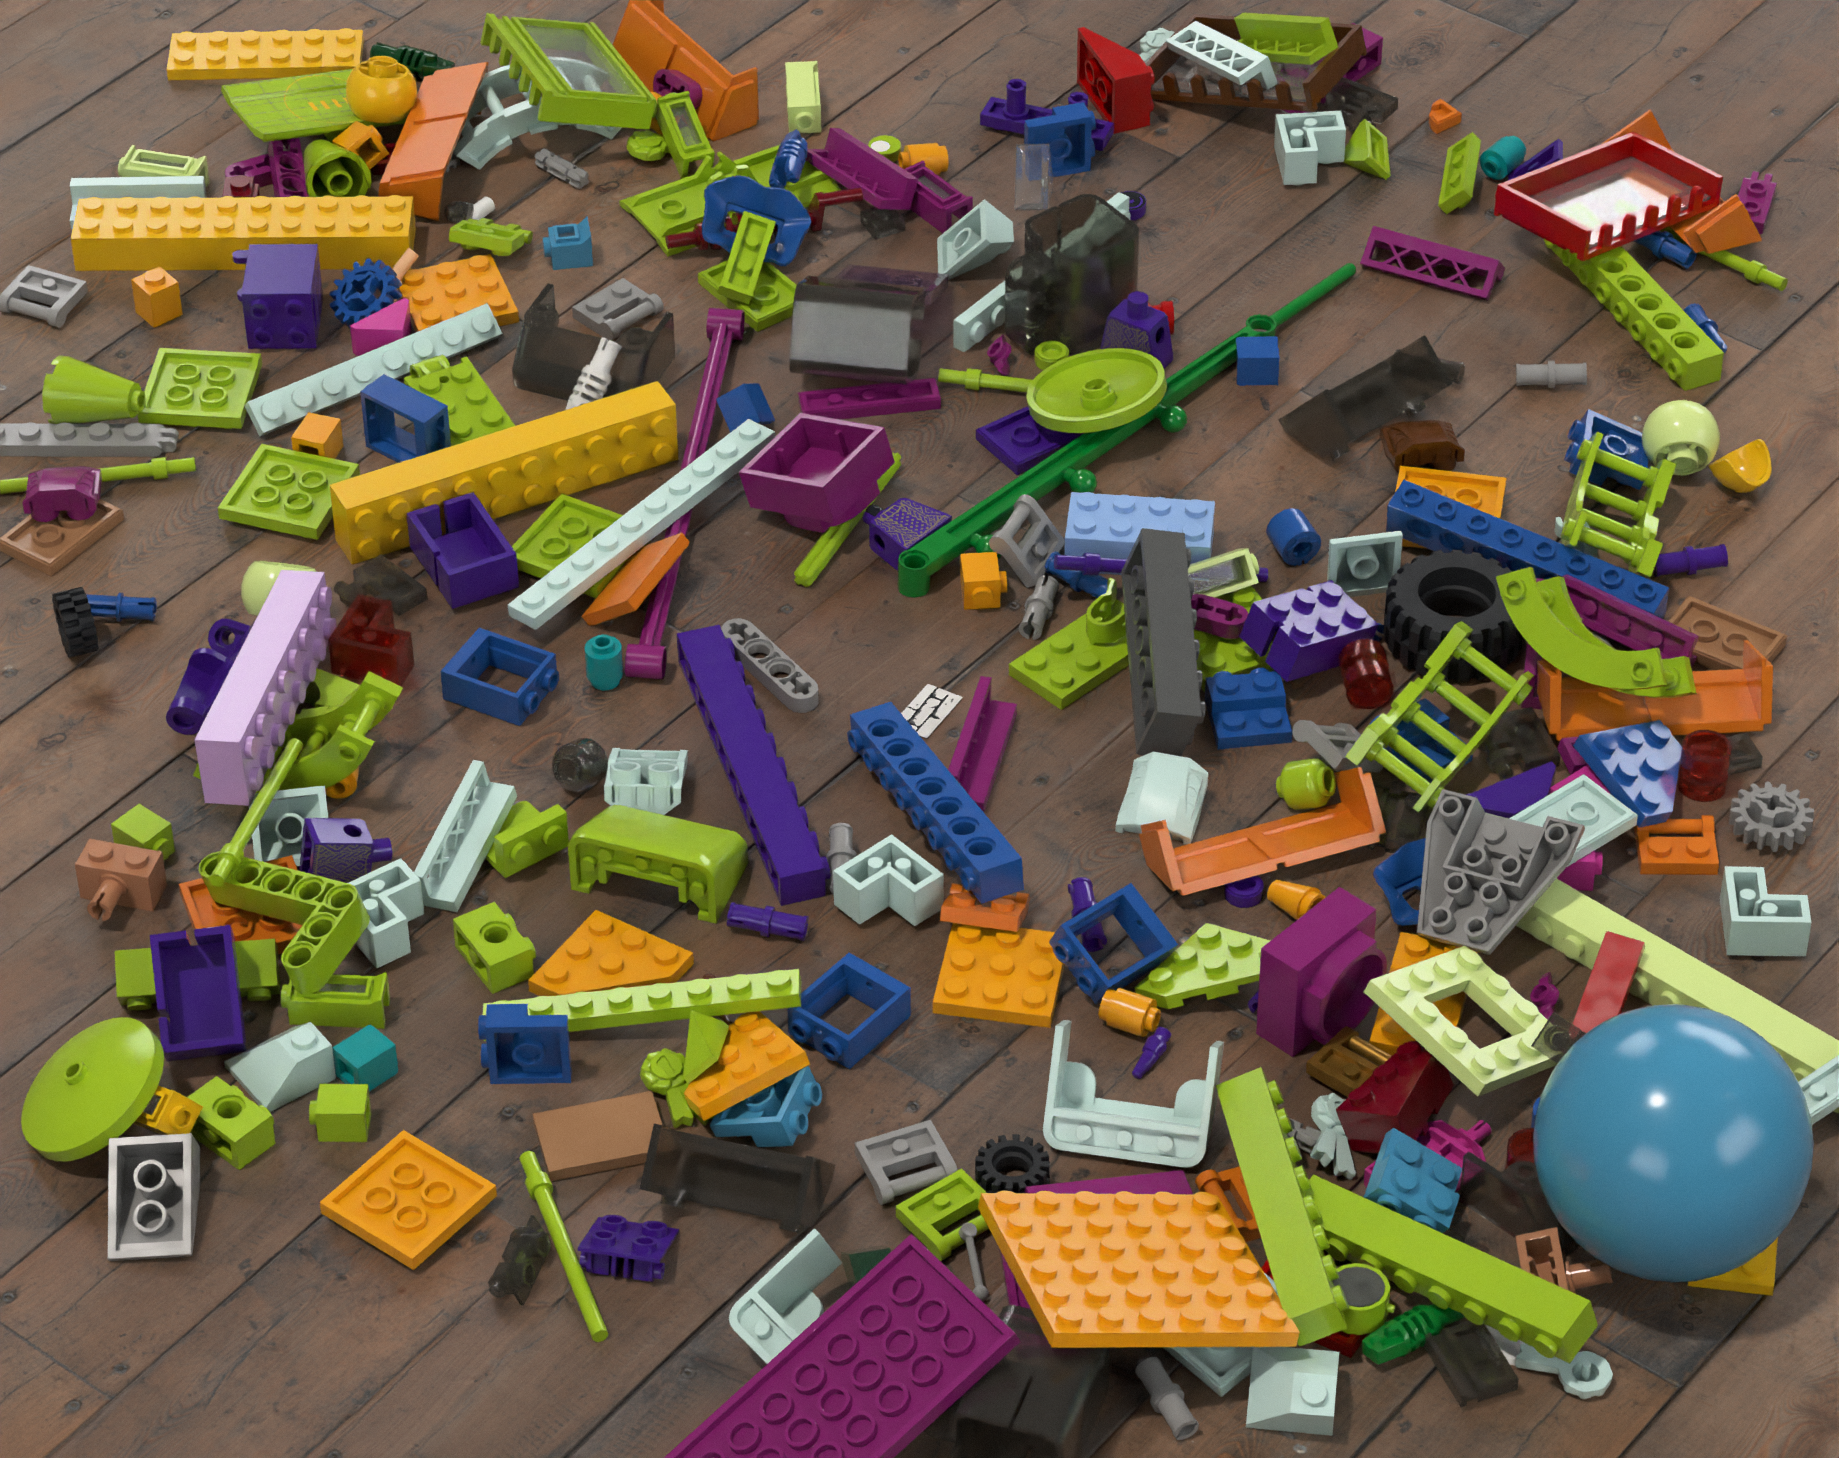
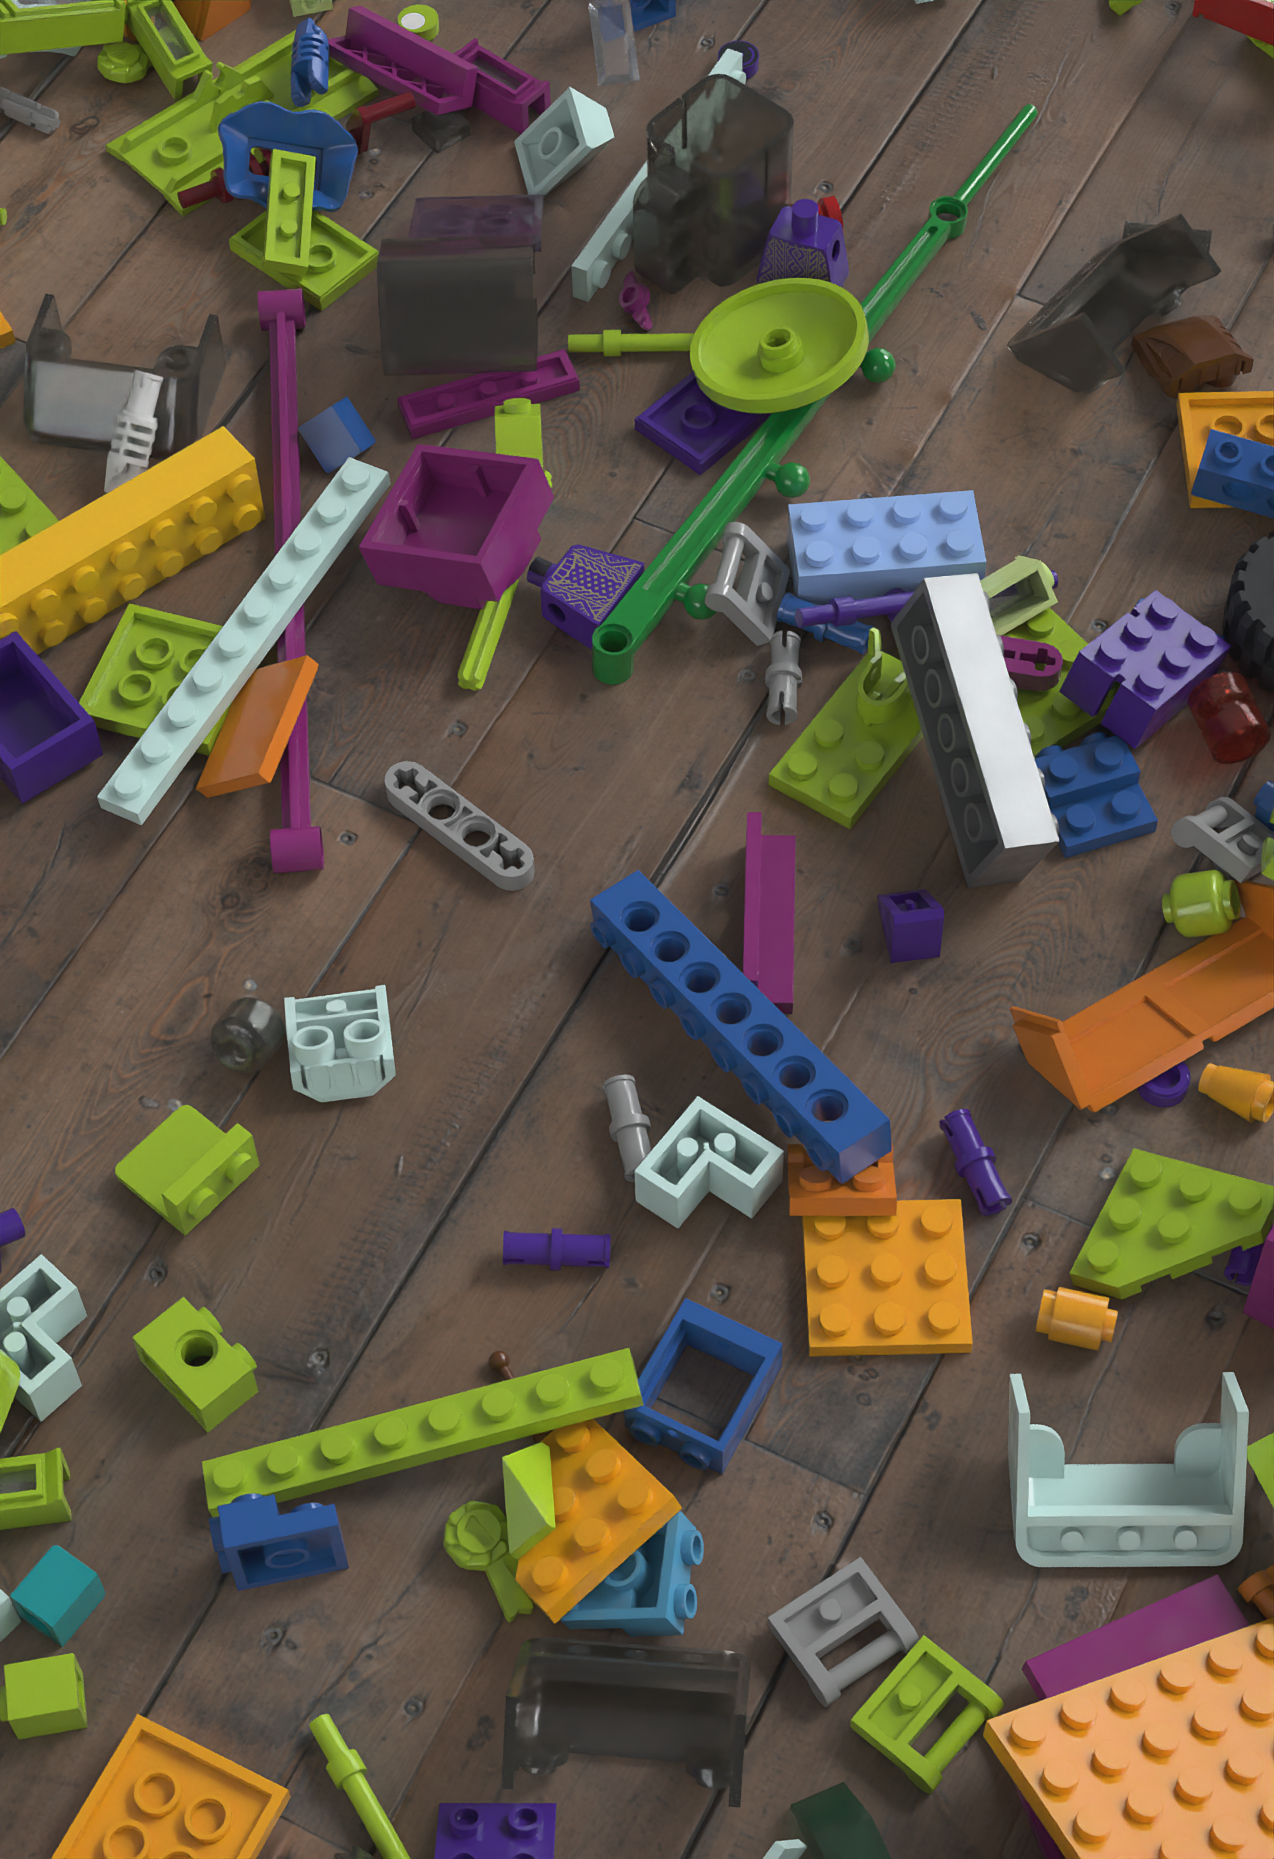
camera: 10 degrees left, 15 degrees up
(463, 838) = (118, 1193): light aqua fence -> none
(486, 649) = (67, 886): blue window -> none
(569, 245) = (57, 223): dark azure window -> none
(596, 1135) = (412, 1661): medium nougat tile -> none
(604, 662) = (243, 863): teal brick -> none
(609, 956) = (356, 1354): light orange plate -> none
(616, 308) = (130, 299): light grey plate -> none
(663, 849) = (388, 1170): lime windscreen -> none
(752, 766) = (477, 998): dark purple brick -> none
(885, 414) = (519, 429): none -> lime slope
(930, 709) = (680, 859): white sticker -> none
(931, 153) = (476, 24): light orange brick -> none
(967, 1233) = (961, 1746): light grey hinge -> none
(981, 580) = (702, 651): light orange brick -> none
(1011, 1155) = (999, 1591): black tyre -> none
(1050, 353) = (699, 292): lime tile -> none
(1085, 771) = (911, 925): none -> dark purple slope
(1137, 921) = (1064, 1184): blue window -> none
(1152, 1051) = (1119, 1372): dark purple piece -> none
(1167, 790) = (1023, 955): light aqua slope -> none
(1257, 360) = (960, 263): blue panel -> none
(1293, 536) = (1077, 520): blue piece -> none
(1364, 562) = (1184, 549): light aqua slope -> none
(1405, 245) = (1131, 76): magenta fence -> none

